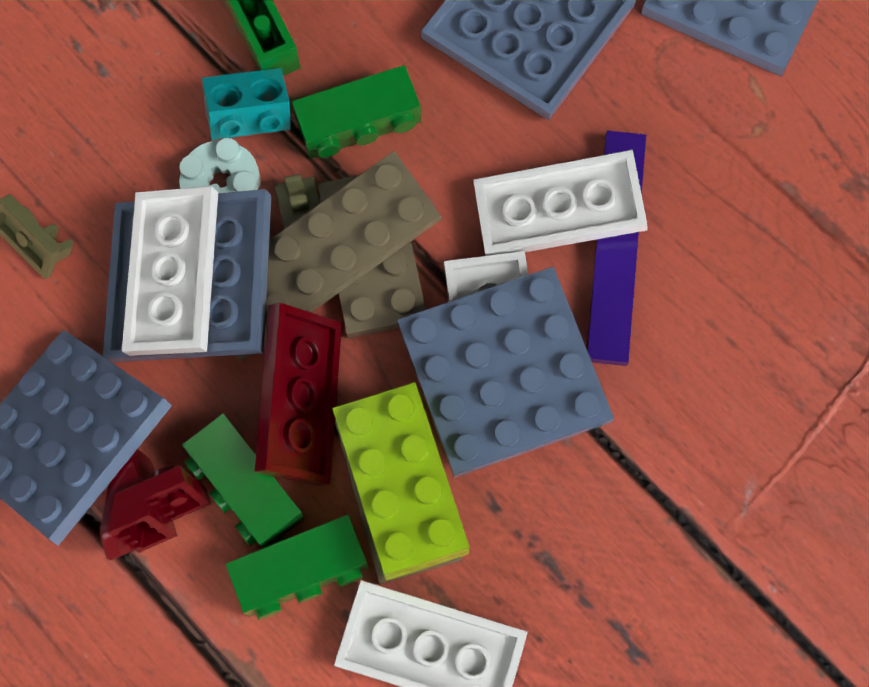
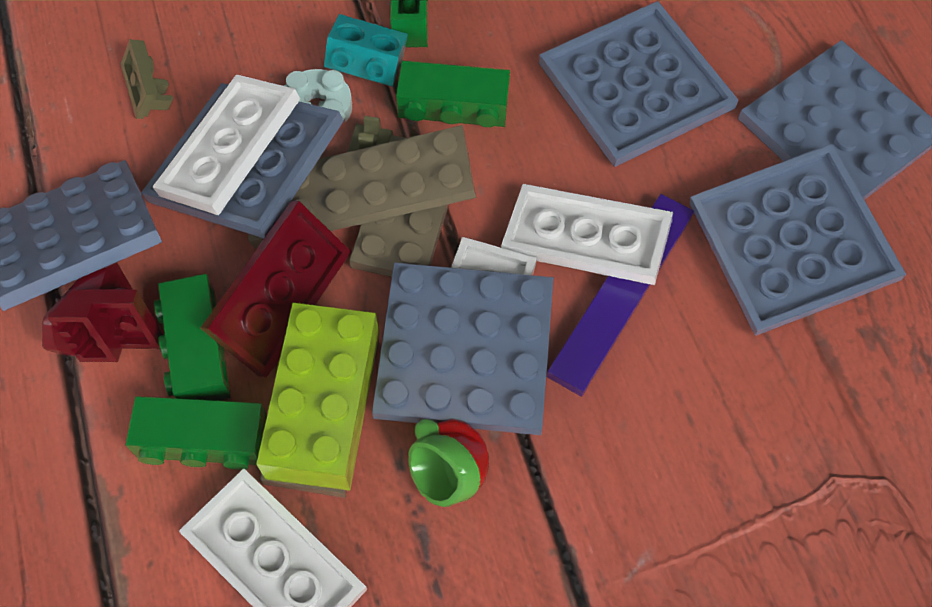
camera: 25 degrees right, 10 degrees down
(543, 486) = (448, 461): none -> bright green piece
(752, 123) = (795, 239): none -> sand blue plate

